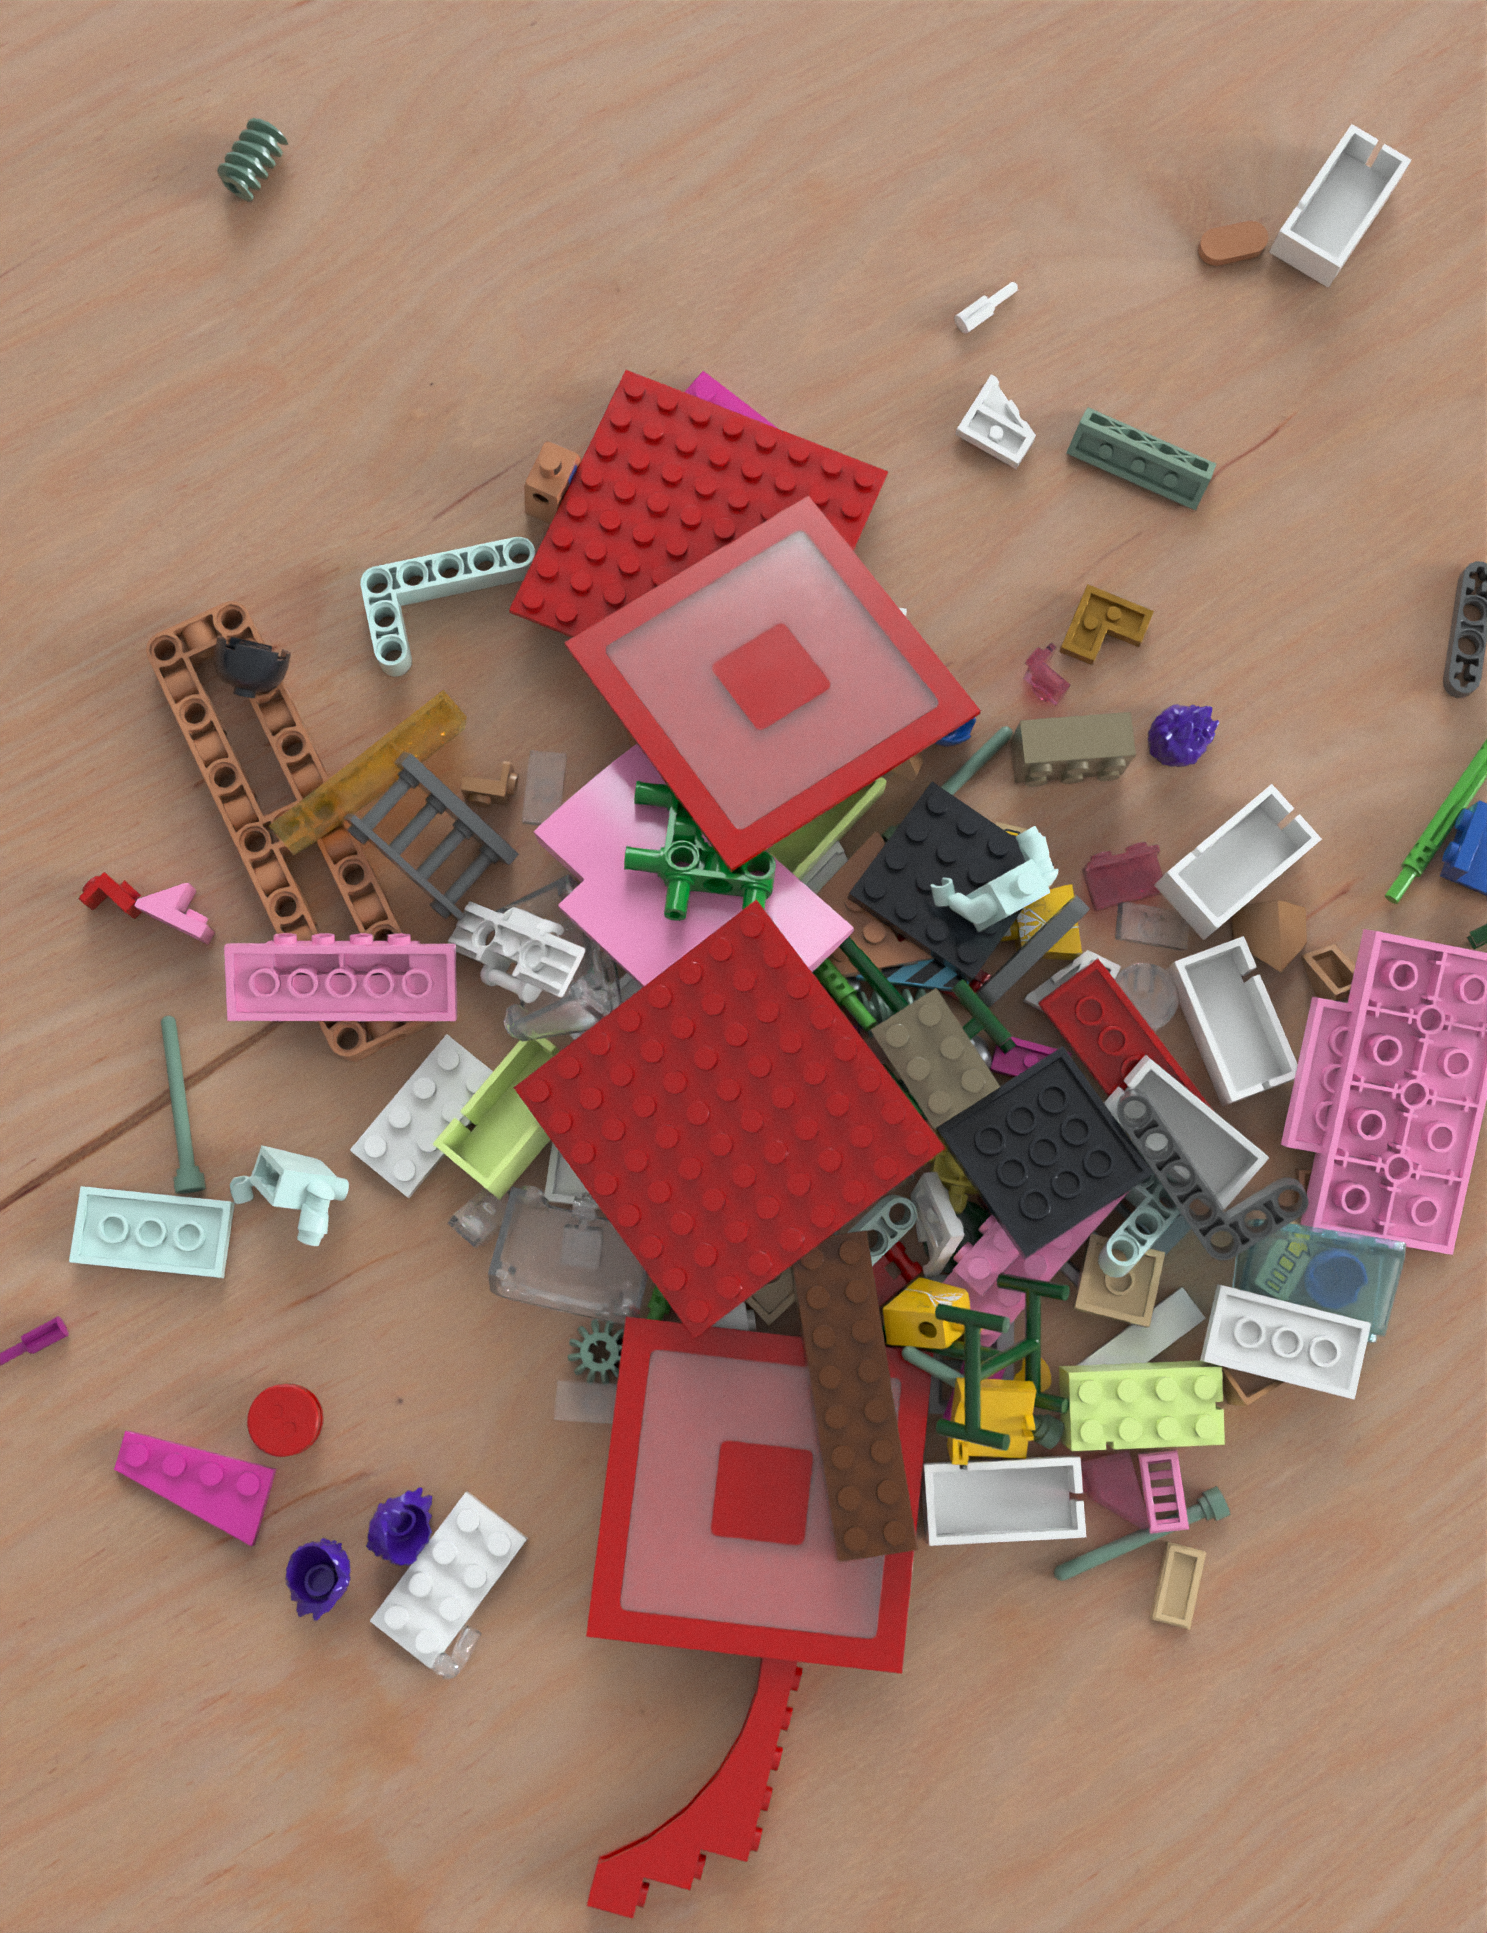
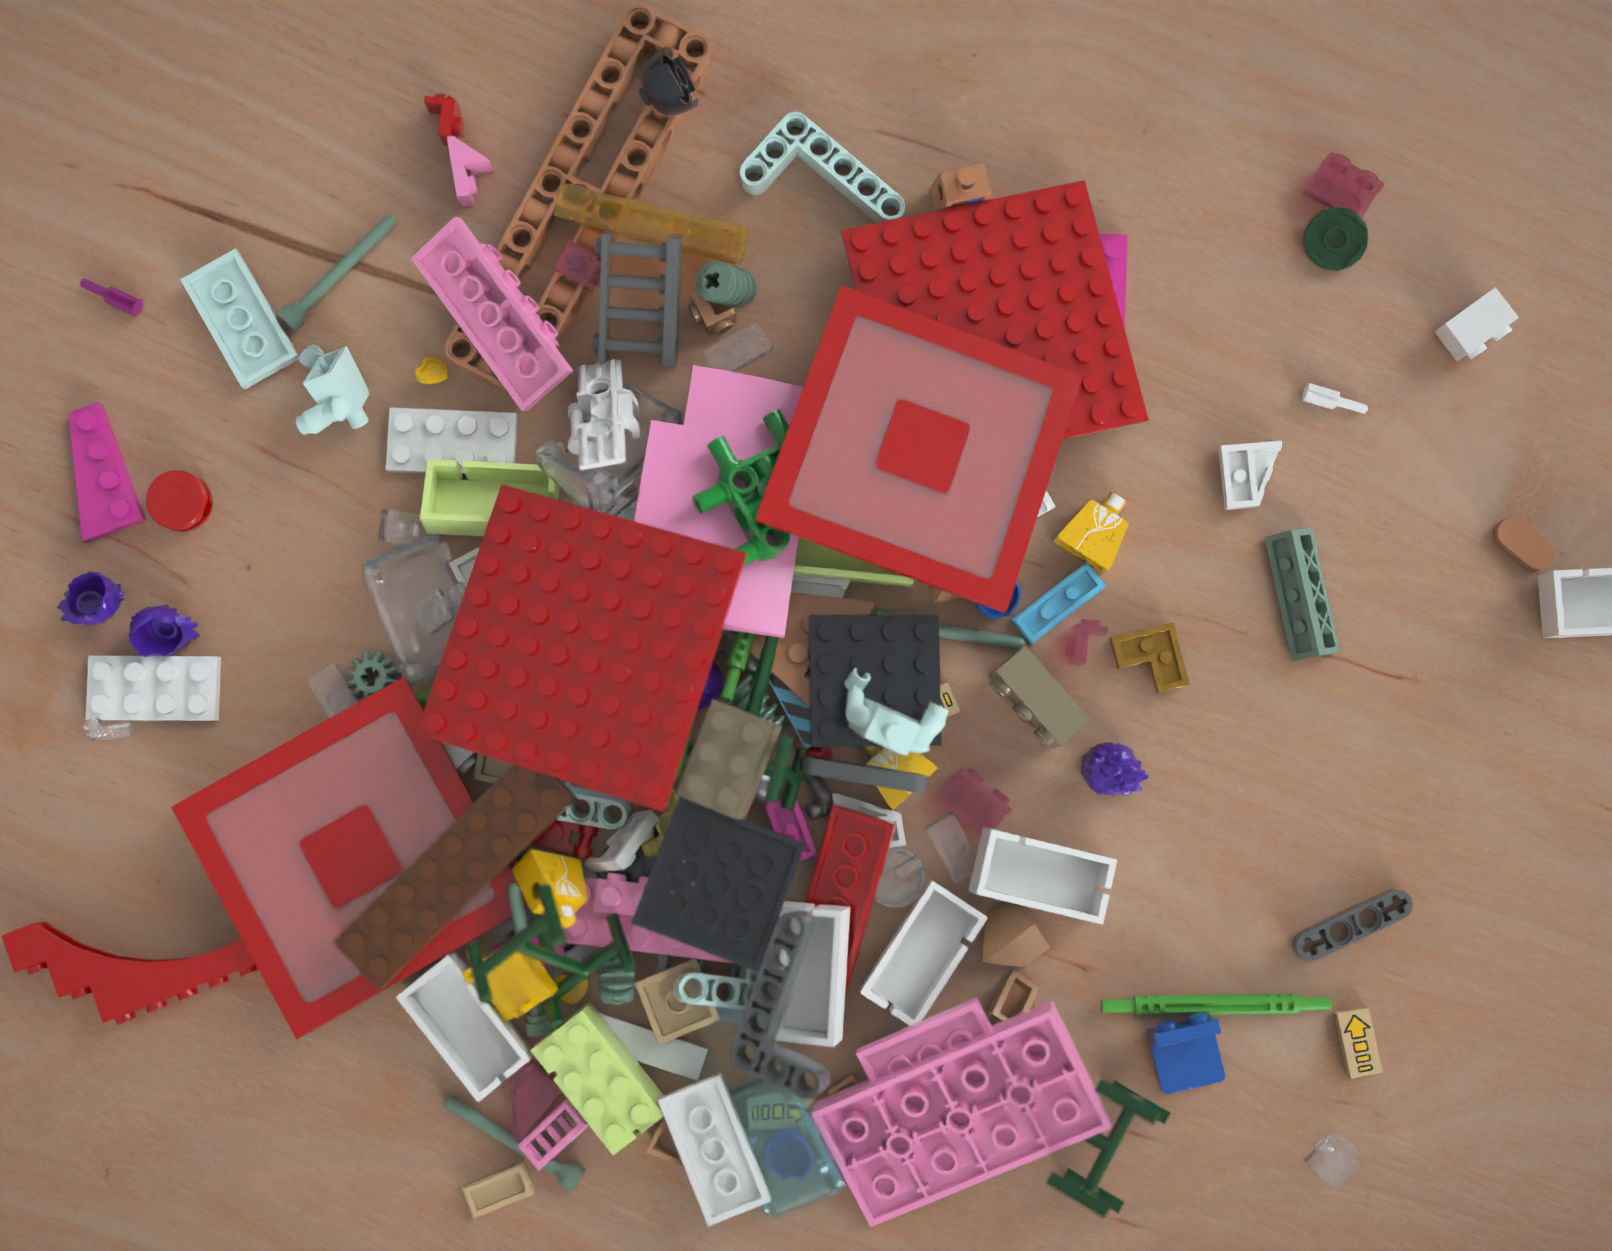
camera: 55 degrees right, 5 degrees up
(345, 1084) = (432, 371): none -> yellow piece
(357, 868) = (580, 265): none -> clear pink bracket
(490, 746) = (725, 284): none -> sand green piece
(802, 159) = (1343, 184): none -> clear pink bracket
(843, 199) = (1335, 238): none -> dark green tile
(955, 593) = (1095, 532): none -> yellow torso
(994, 673) = (1058, 603): none -> medium azure tile
(1011, 139) = (1476, 324): none -> white brick
(1021, 1013) = (821, 797): none -> flat silver arm
(1061, 1324) = (614, 984): none -> sand green gear

